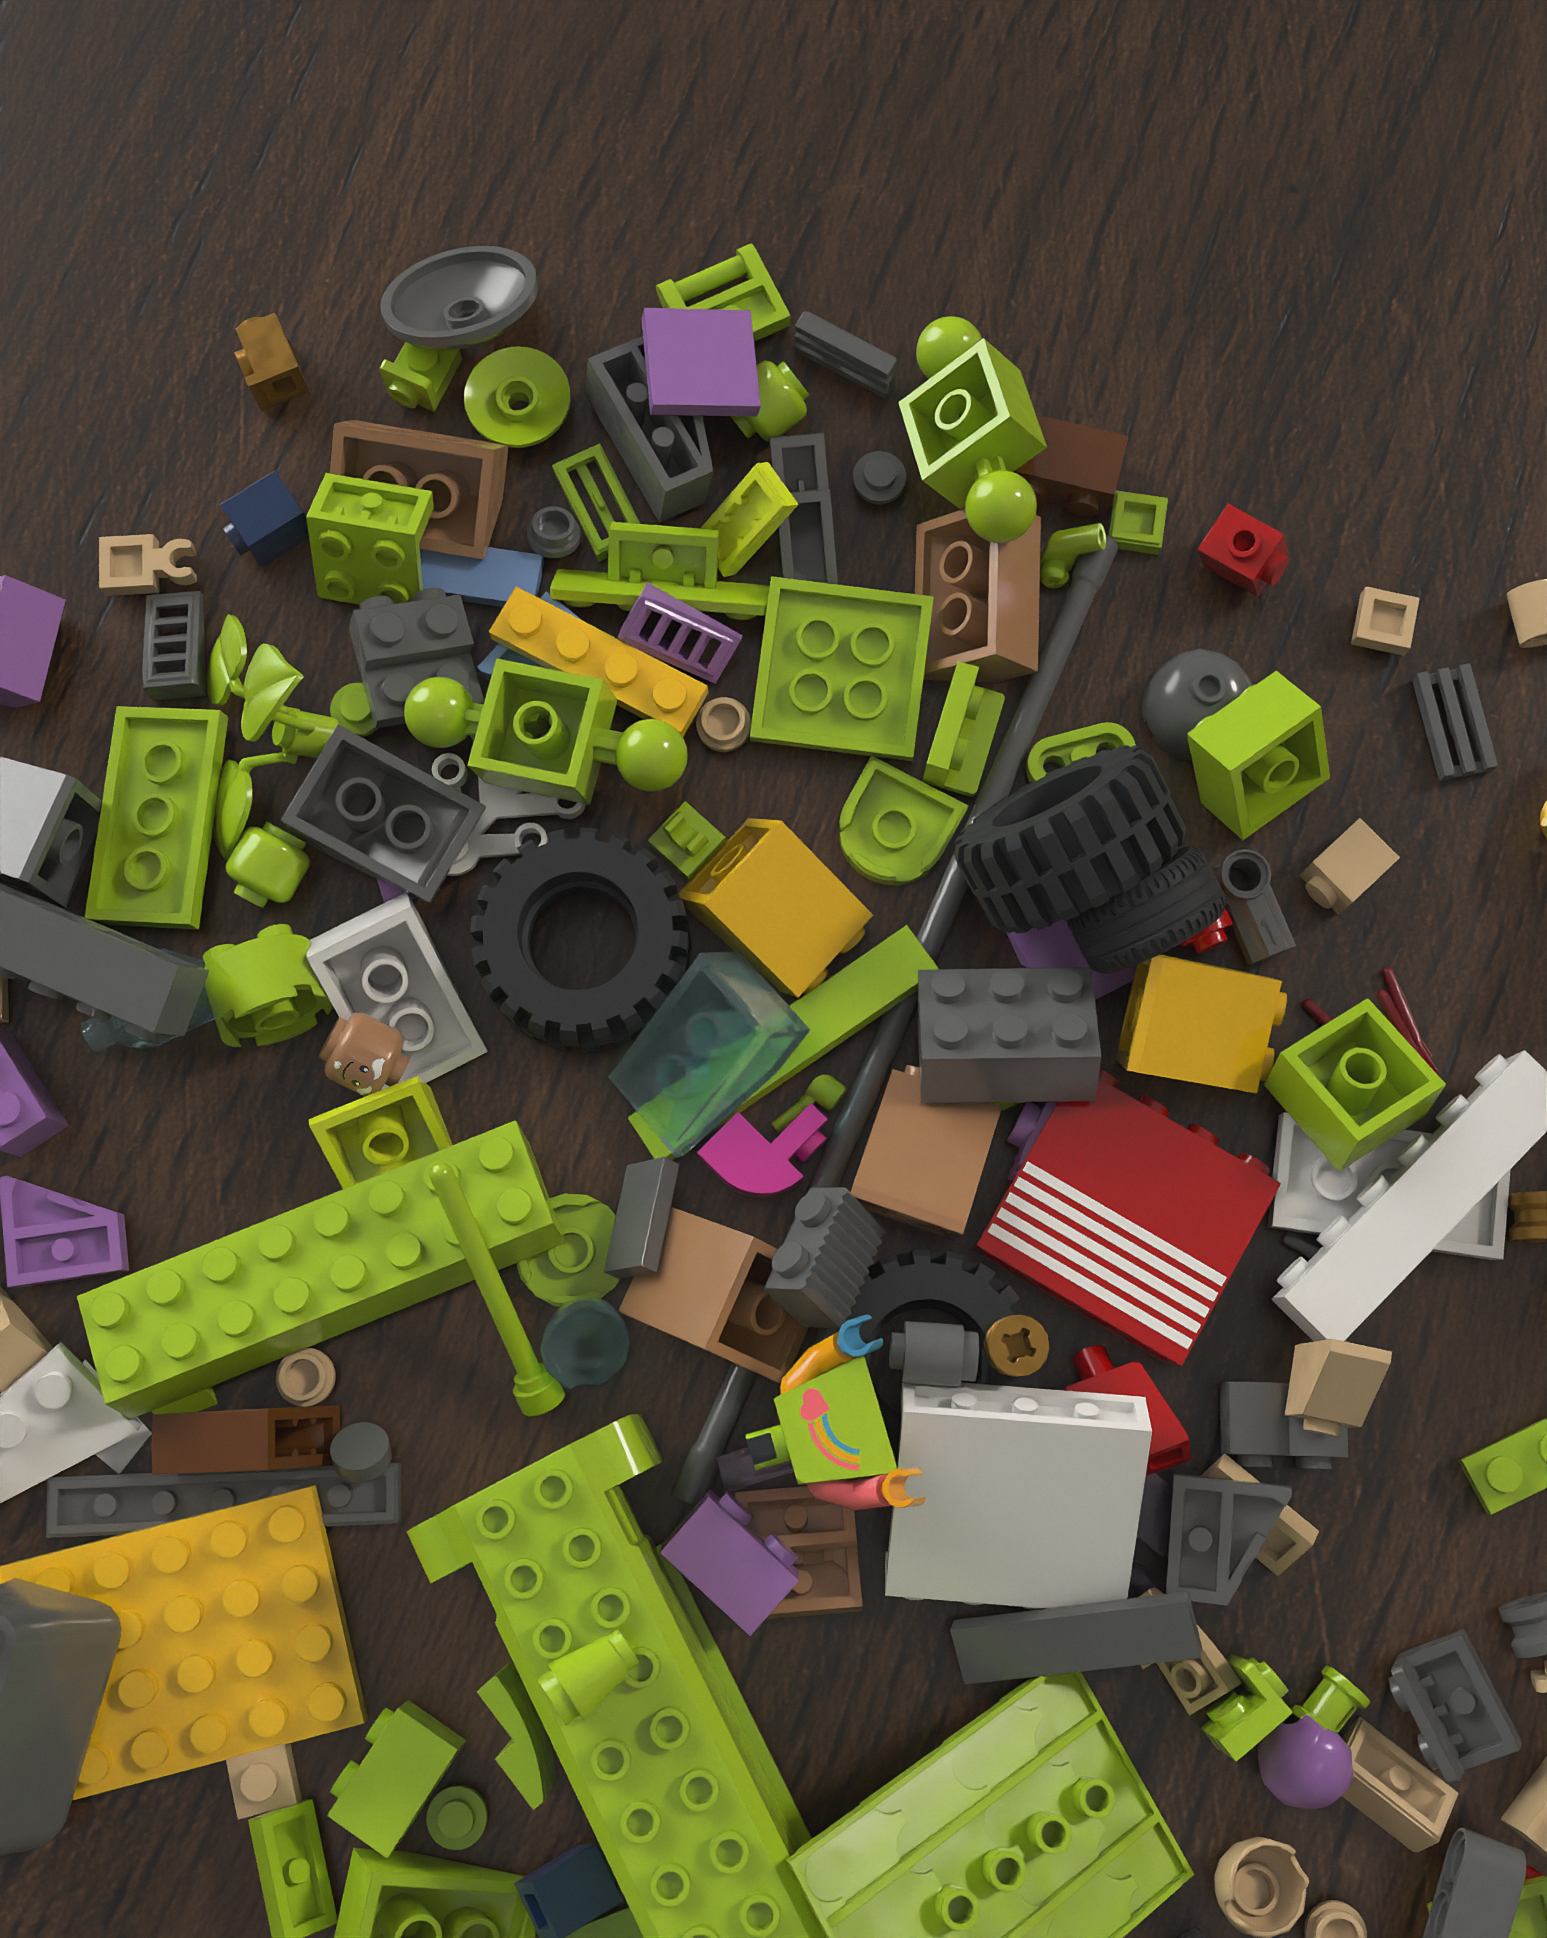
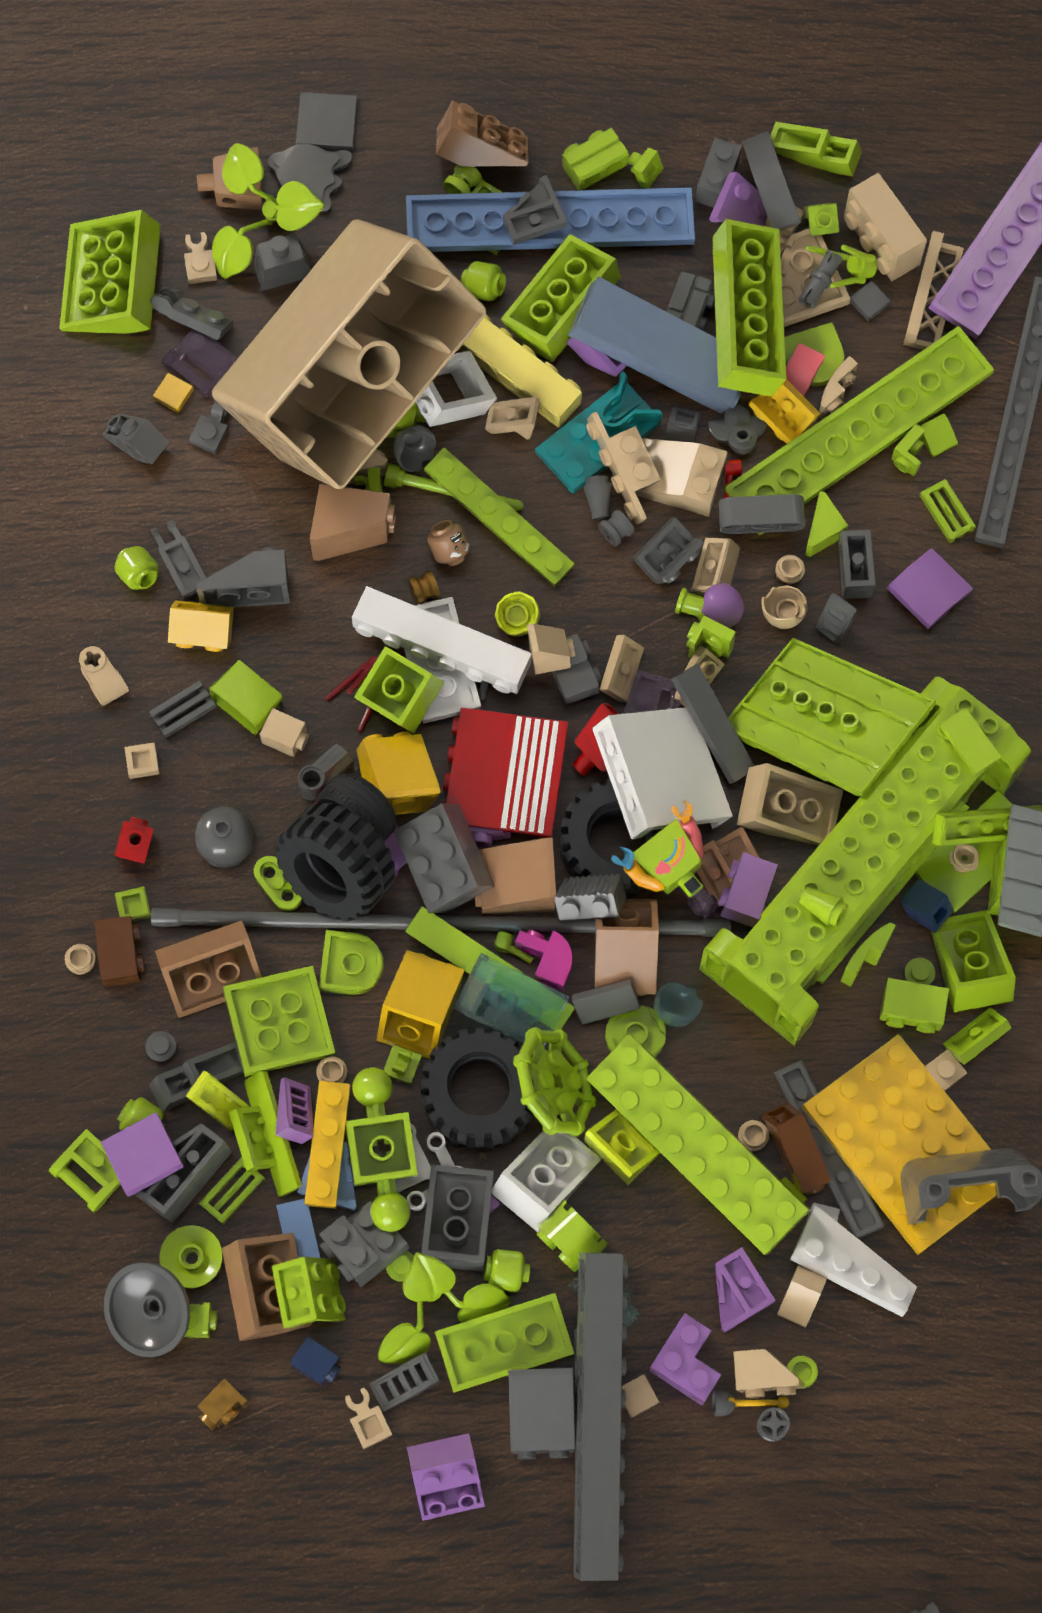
camera: 115 degrees left, 5 degrees down
(360, 1452) = (776, 1090): dark grey tile -> none
(364, 1054) = (585, 1166): medium nougat head -> none
(522, 1085) = (554, 1081): none -> lime plate
(534, 1387) = (707, 1021): lime piece -> none
(553, 532) = (261, 1205): dark grey plate -> none
(845, 354) = (97, 1090): dark grey tile -> none
(866, 1711) = (788, 805): none -> tan slope
(934, 1354) = (614, 826): dark grey brick -> none
(963, 734) = (289, 946): lime bracket -> none
(973, 429) = (122, 999): lime brick -> none
(1002, 1349) = (594, 799): pearl gold wheel -> none
(1063, 548) = (164, 932): lime arm -> none
(1078, 404) = (80, 959): none -> tan plate
(1218, 1533) = (638, 678): dark grey wing -> none
(1259, 754) = (247, 792): lime brick -> none
(1428, 1364) = (516, 612): none -> neon yellow hair
(1441, 827) = (246, 696): none -> lime piece

